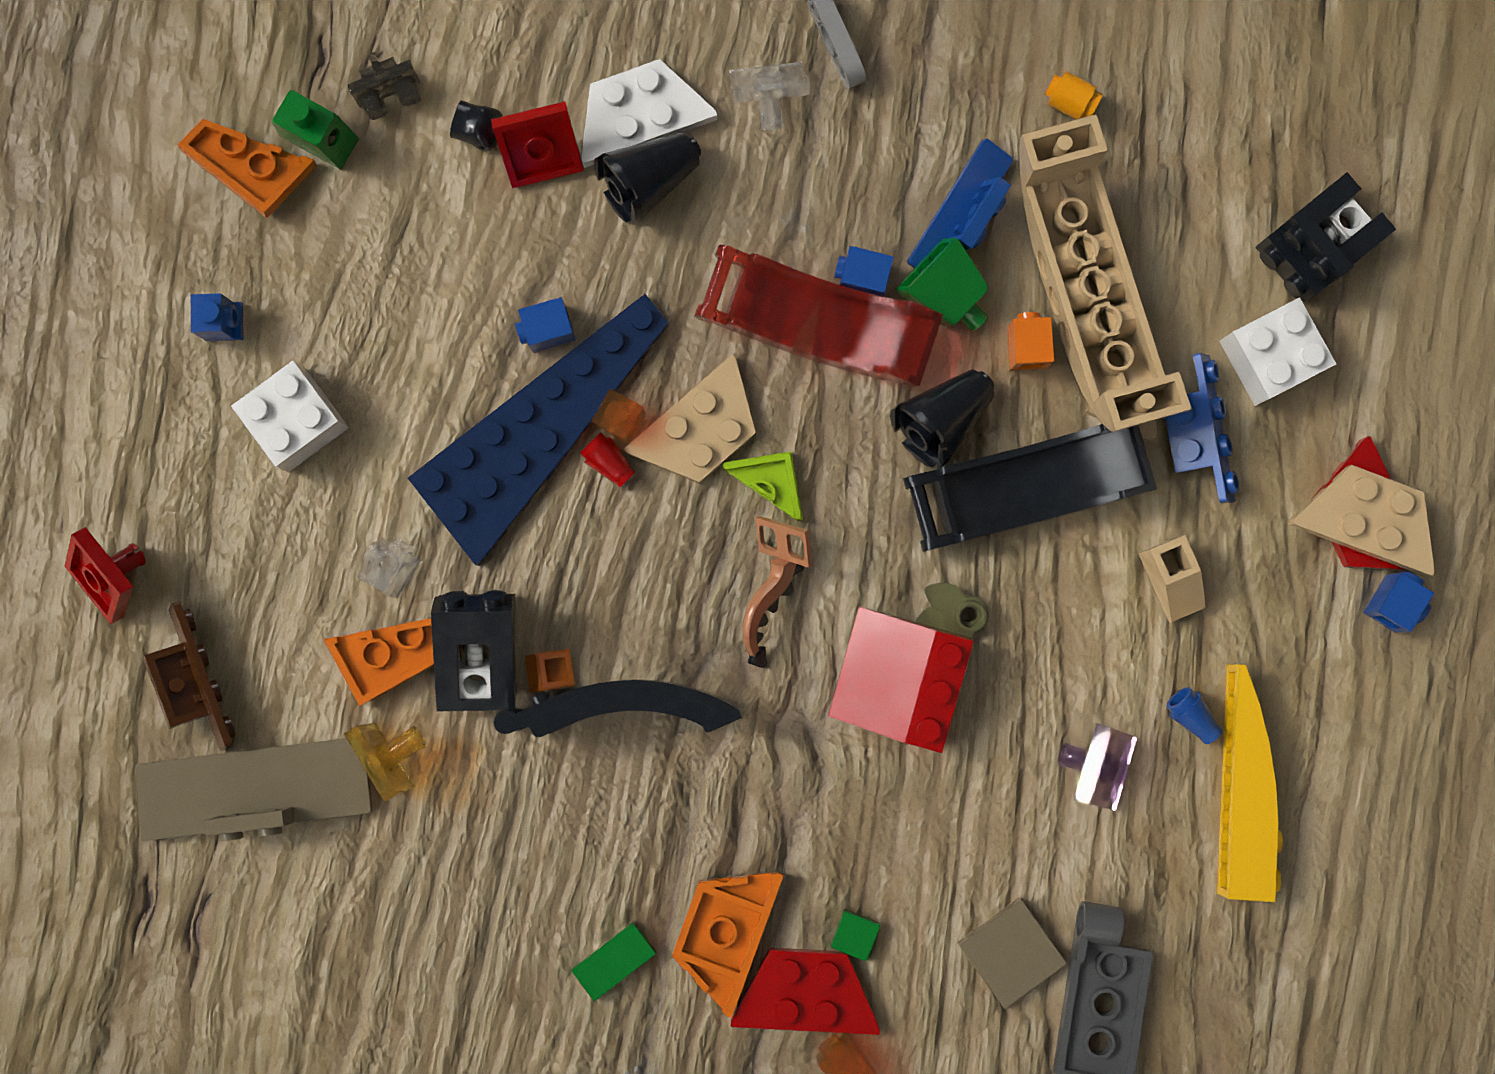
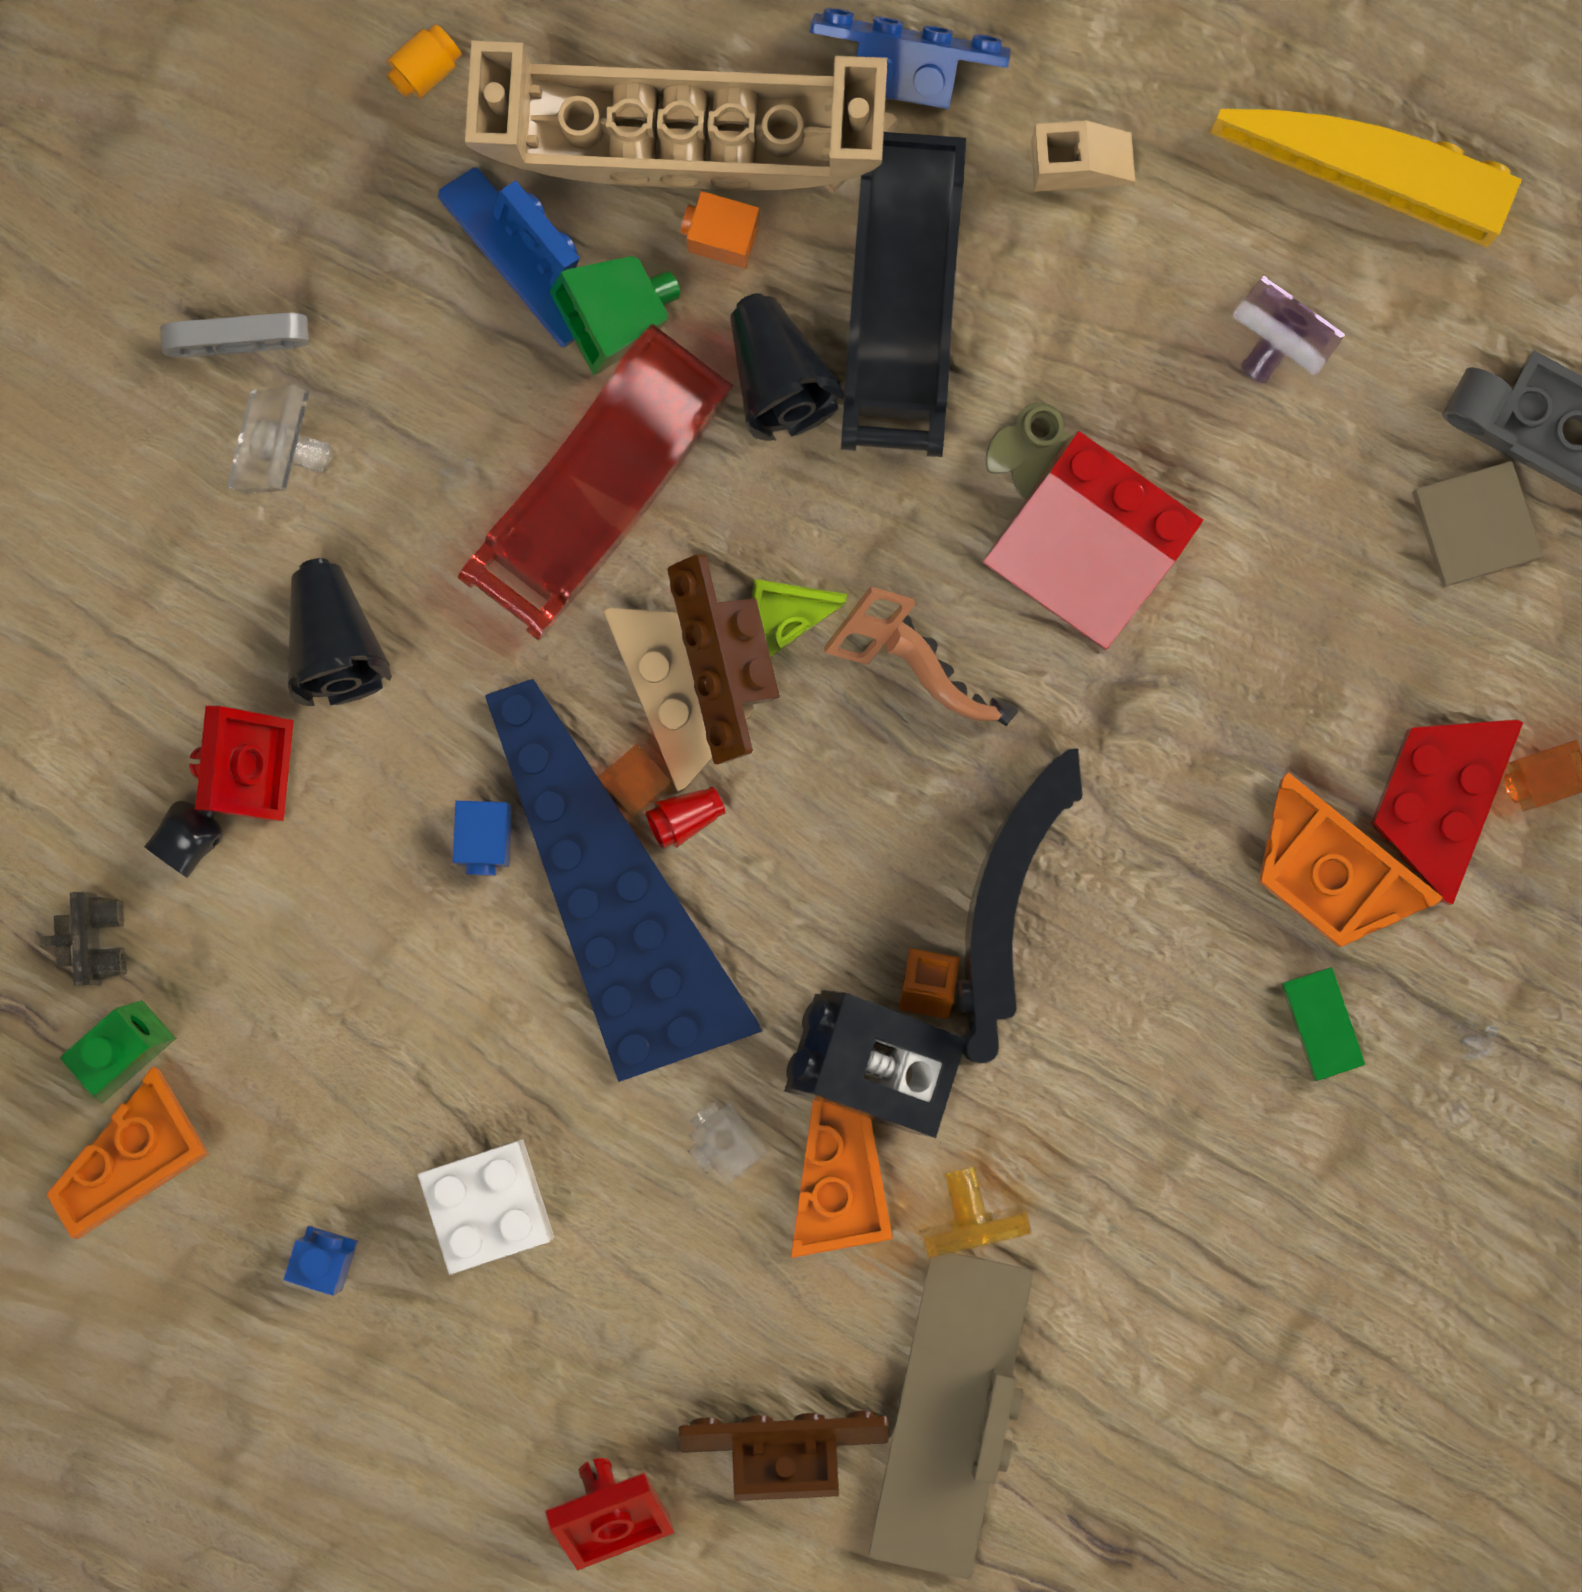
camera: 70 degrees left, 0 degrees up
(640, 108) = (239, 620): white wing -> none
(726, 449) = (724, 655): none -> reddish brown bracket
(855, 935) = (1390, 710): green tile -> none
(864, 270) = (557, 405): blue brick -> none
(1193, 713) = (1258, 195): blue cone -> none

